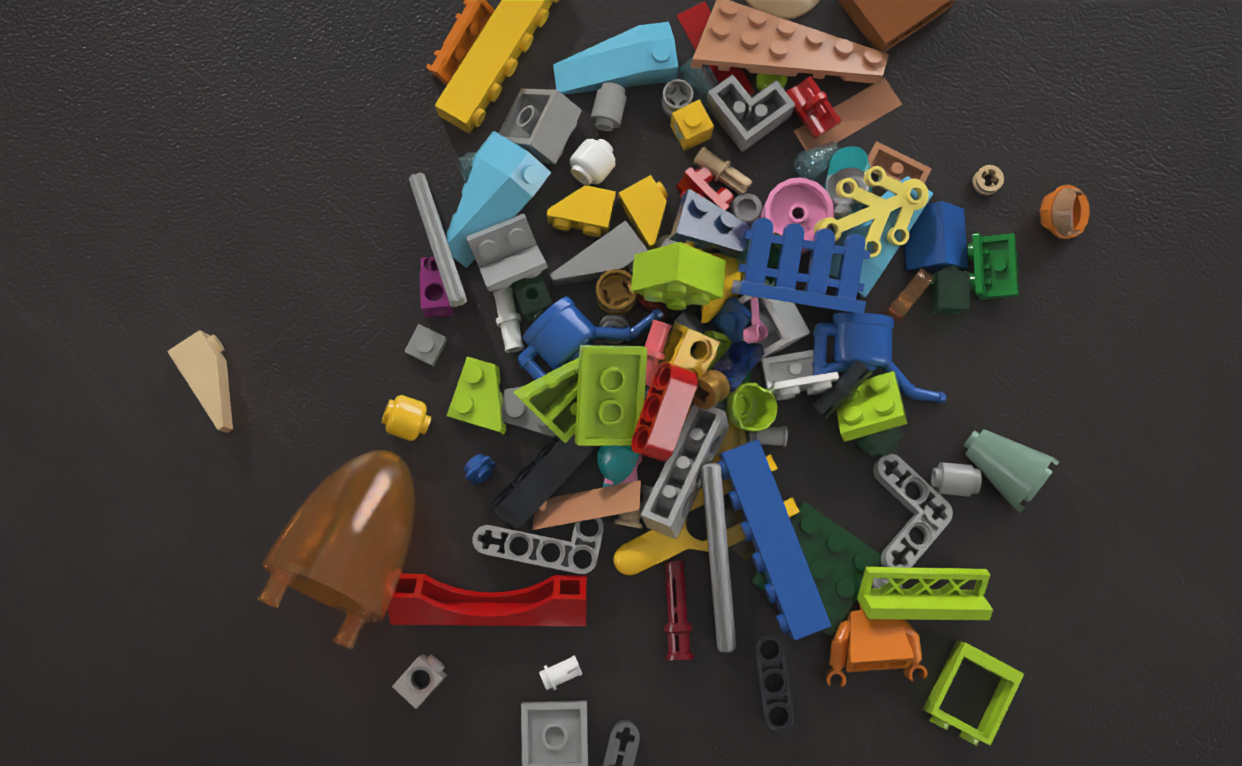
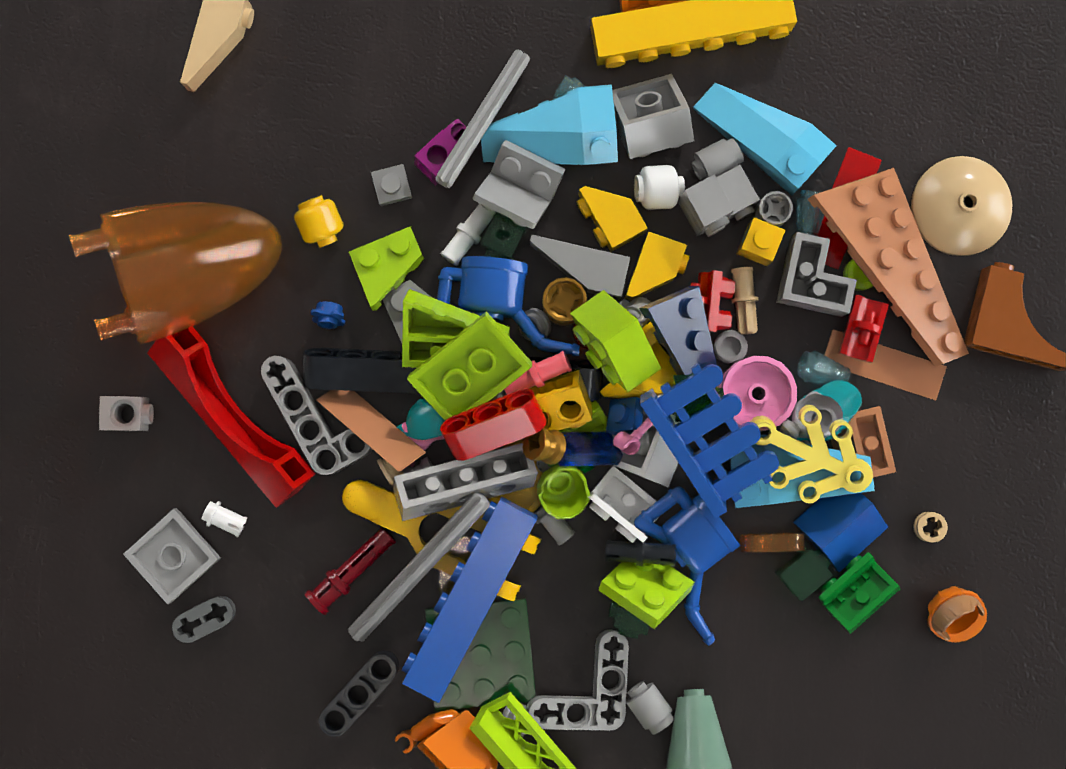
camera: 55 degrees right, 5 degrees up
(638, 130) = (717, 200): none -> light grey brick

